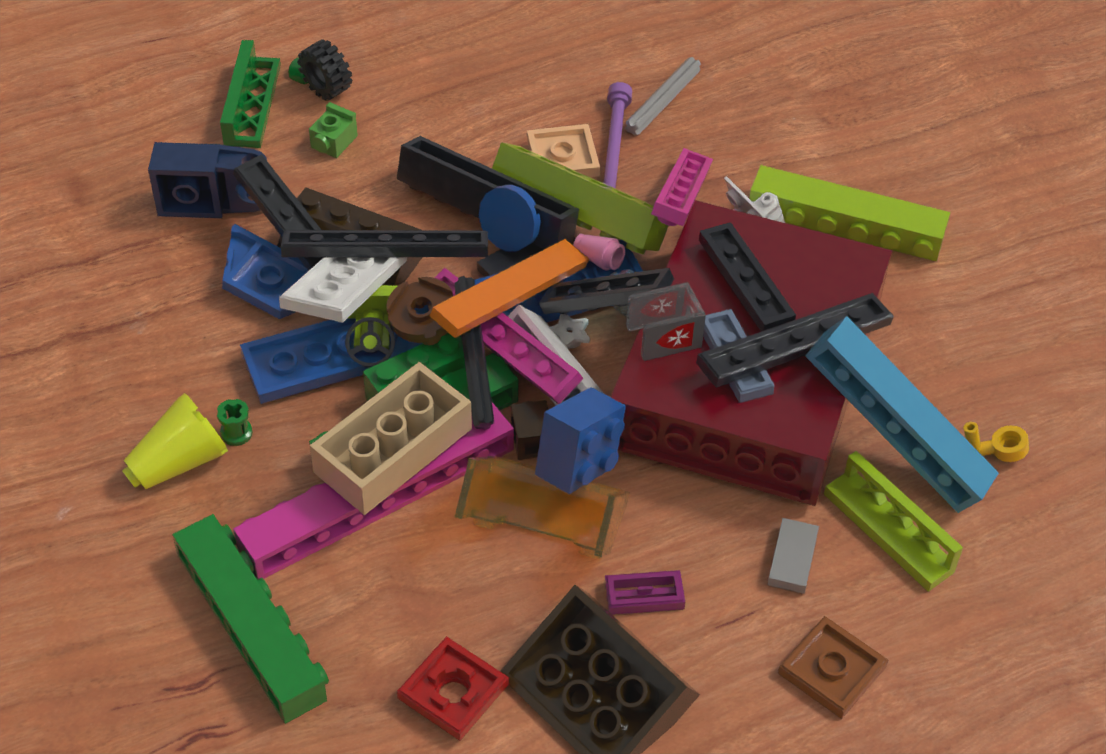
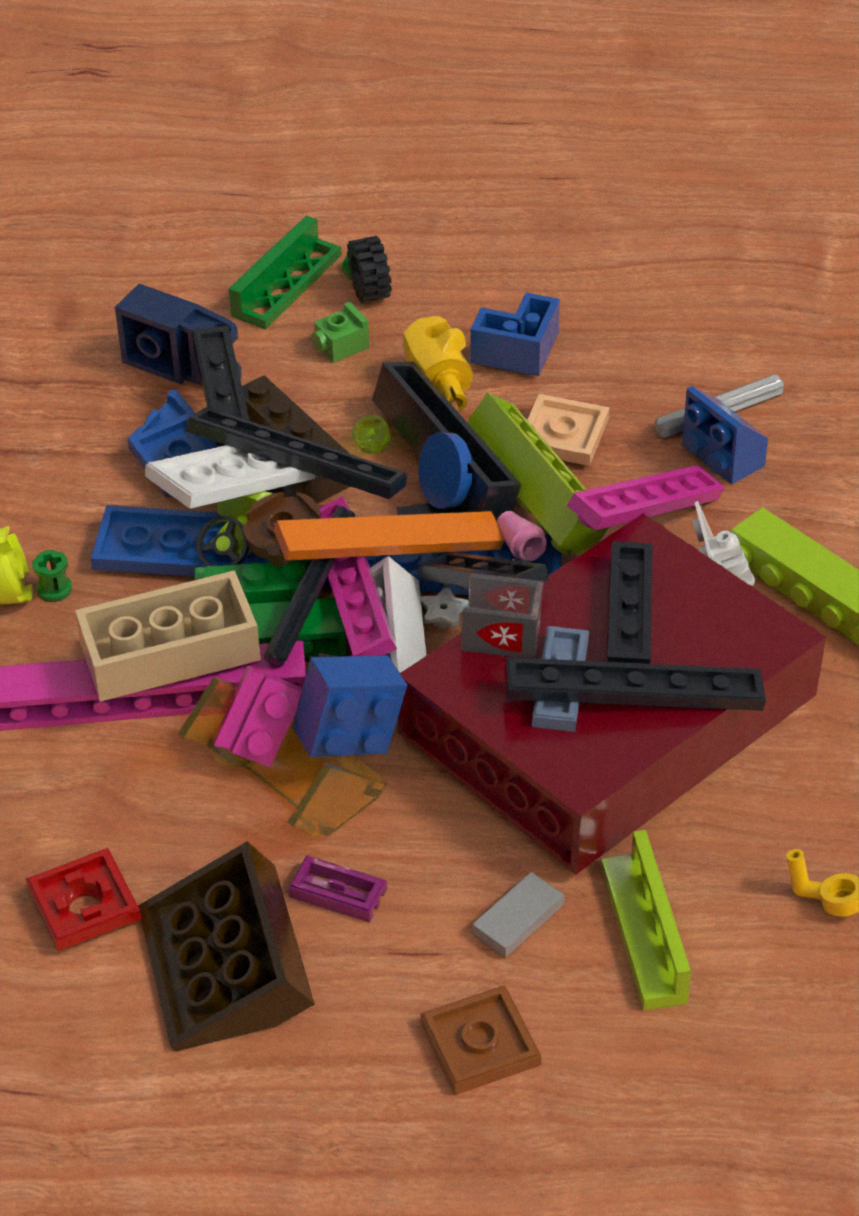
camera: 30 degrees right, 5 degrees down
(415, 207) = (371, 433): none -> clear neon green tile
(437, 124) = (437, 353): none -> yellow piece
(479, 92) = (516, 340): none -> blue brick
(507, 476) = (258, 716): none -> dark pink plate
(619, 98) = (666, 393): medium lavender piece -> none
(688, 120) = (721, 437): none -> blue slope
(902, 415) = (710, 807): dark azure brick -> none

